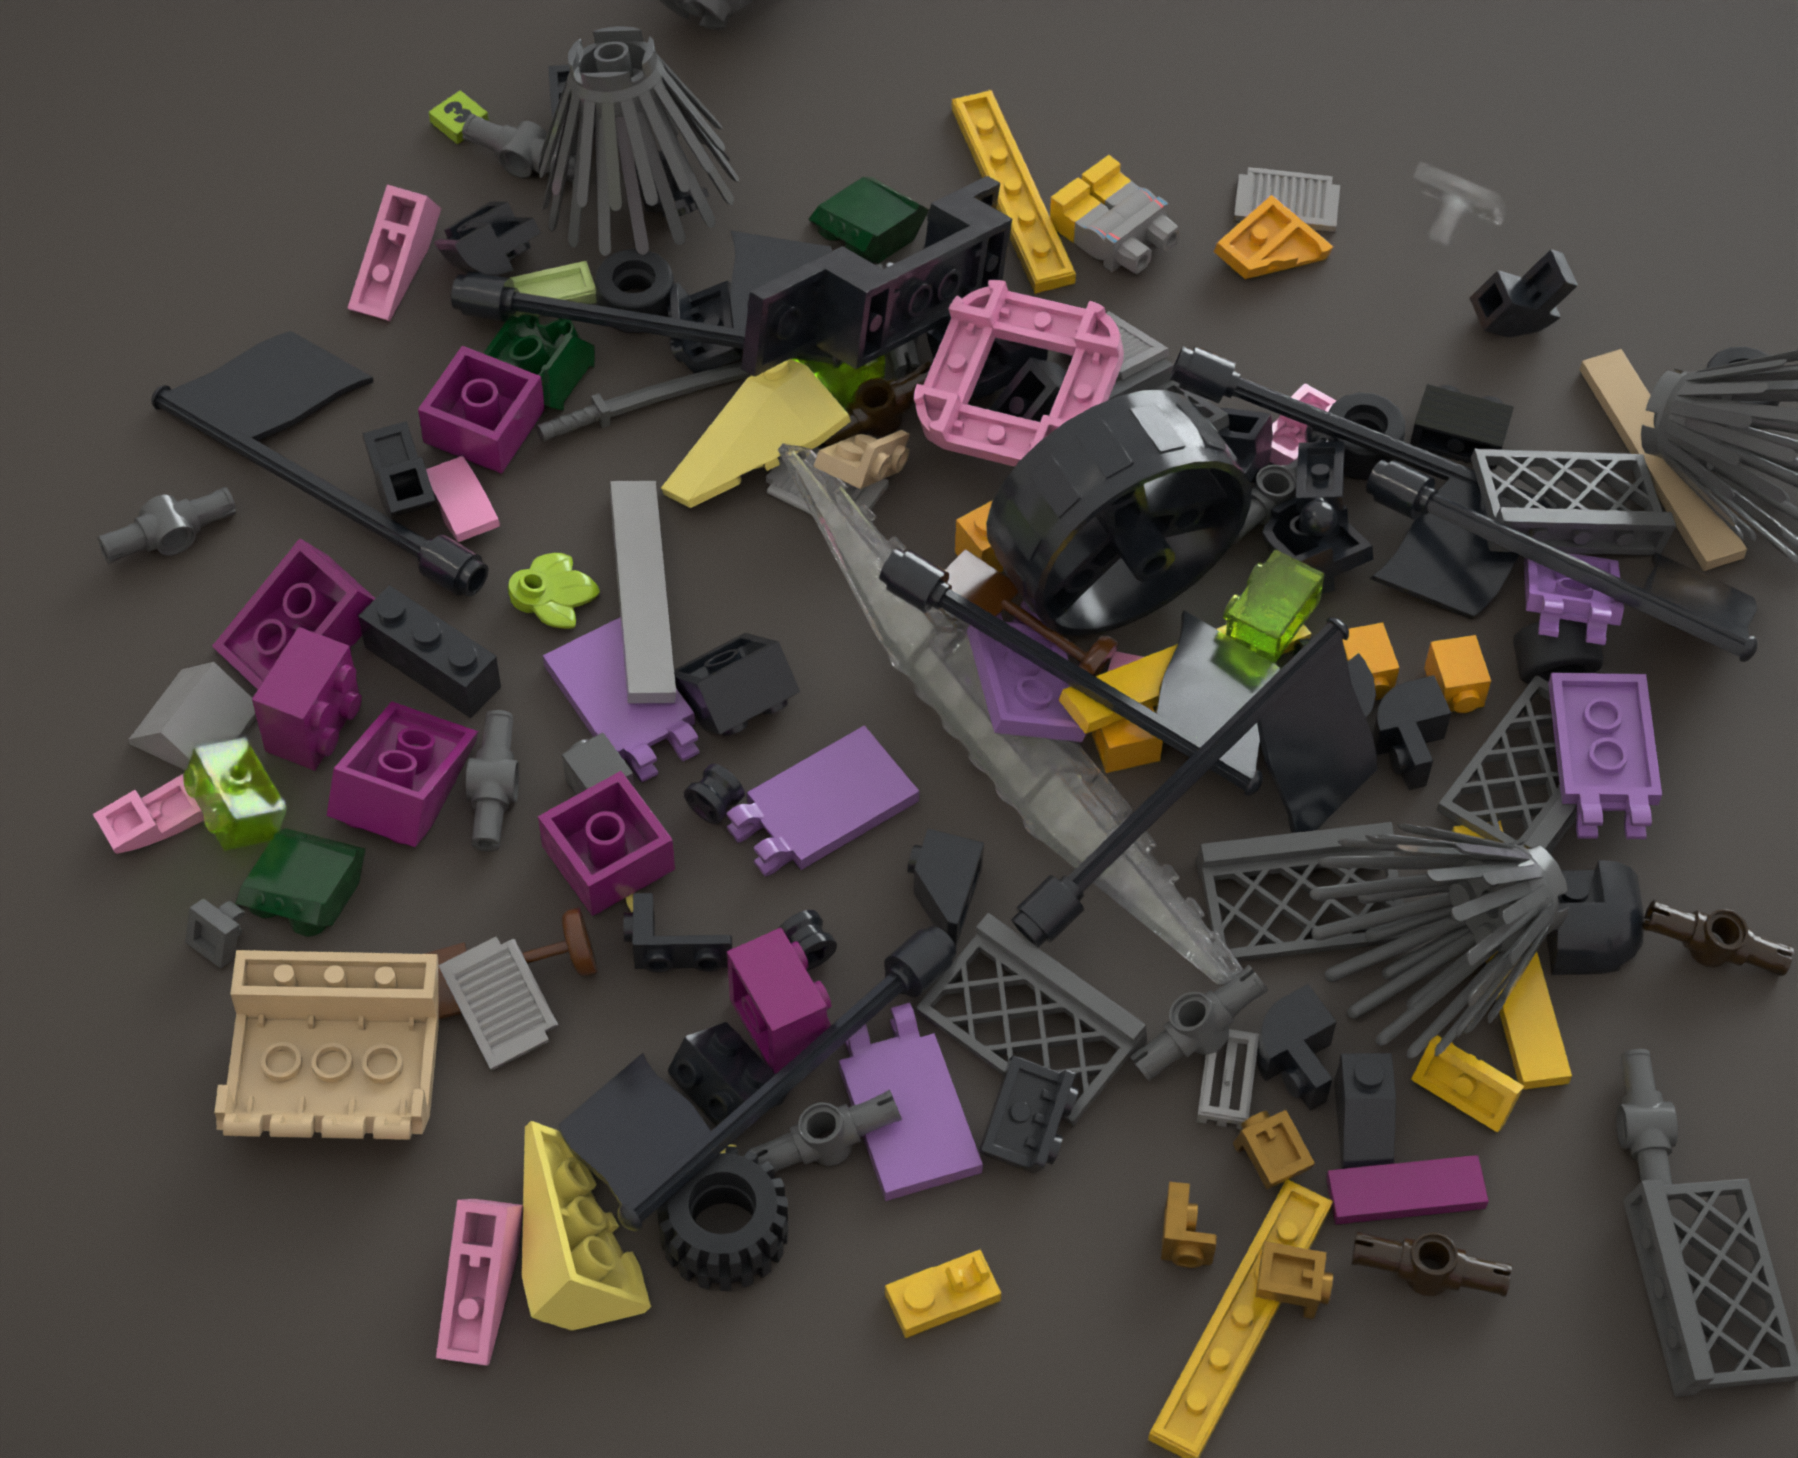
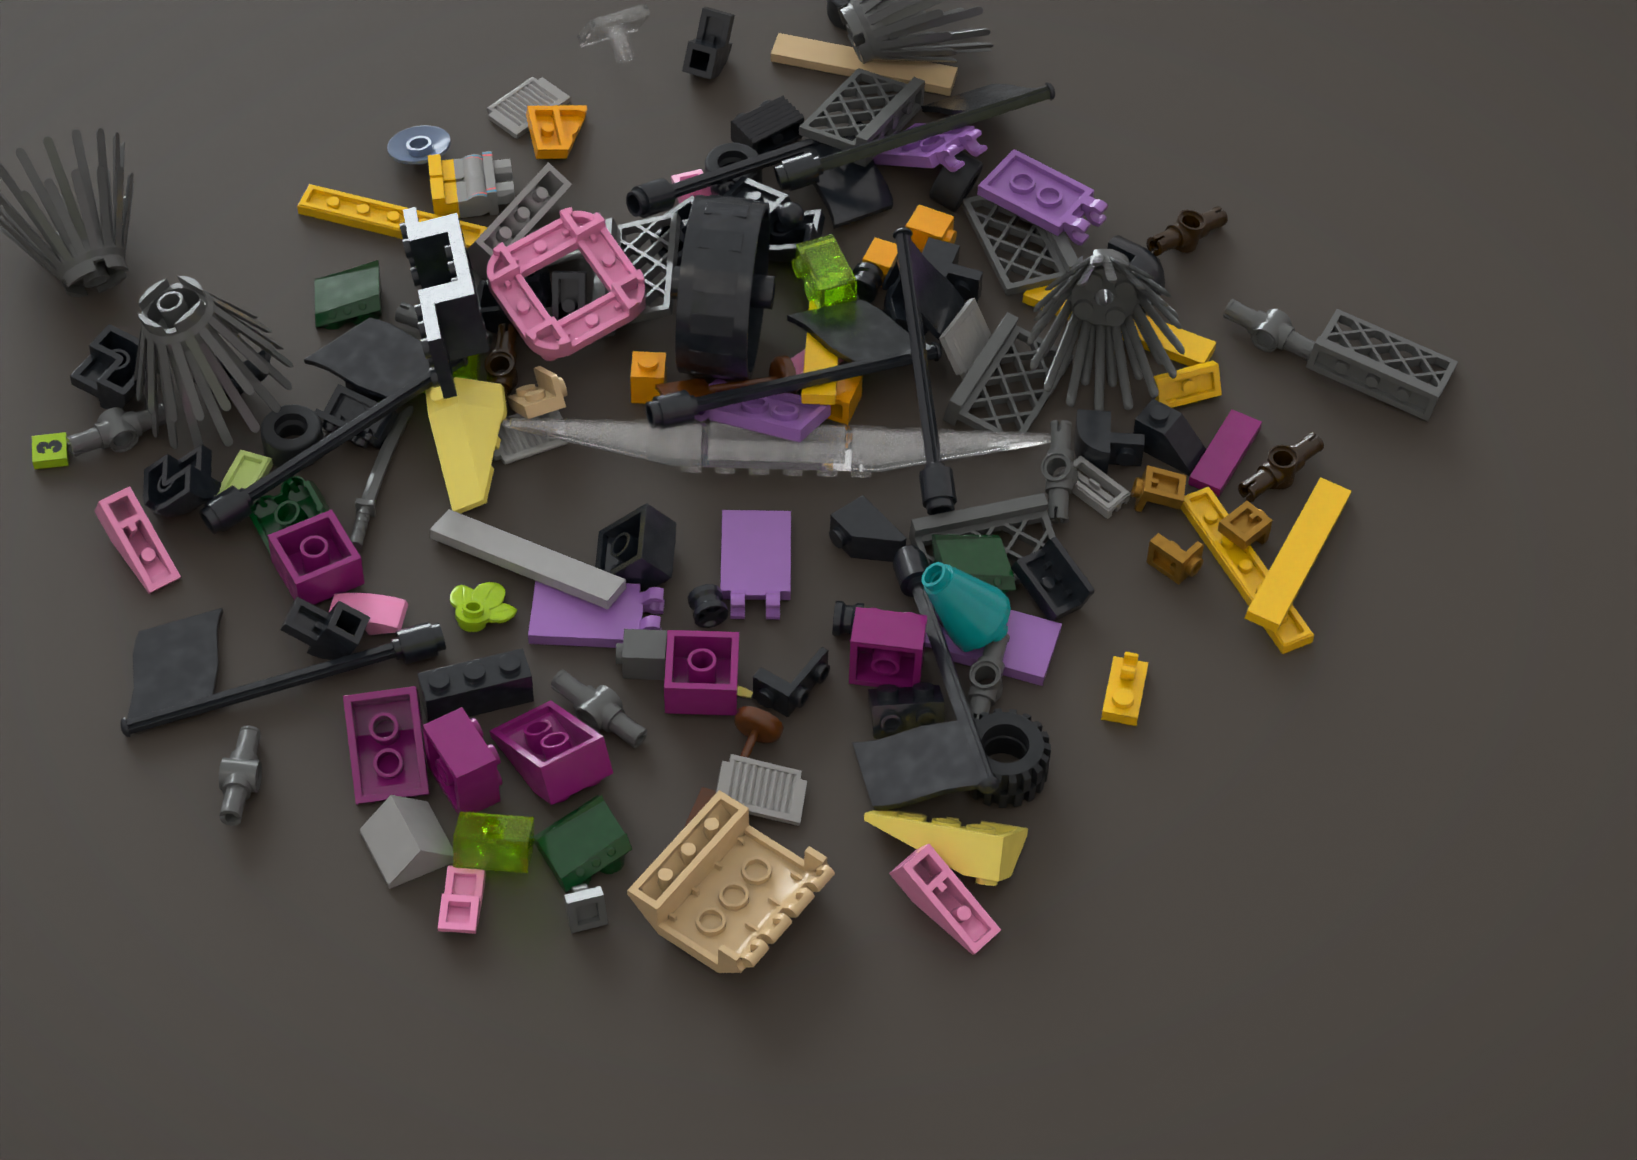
camera: 55 degrees left, 5 degrees down
(882, 1037) = (966, 606): none -> teal cone
(978, 1014) = (976, 555): none -> dark green slope
(1111, 283) = (519, 216): none -> light grey brick
(1129, 140) = (418, 142): none -> sand blue dish
(1306, 1364) = (1298, 555): none -> yellow tile
(1313, 801) = (965, 337): none -> light grey window

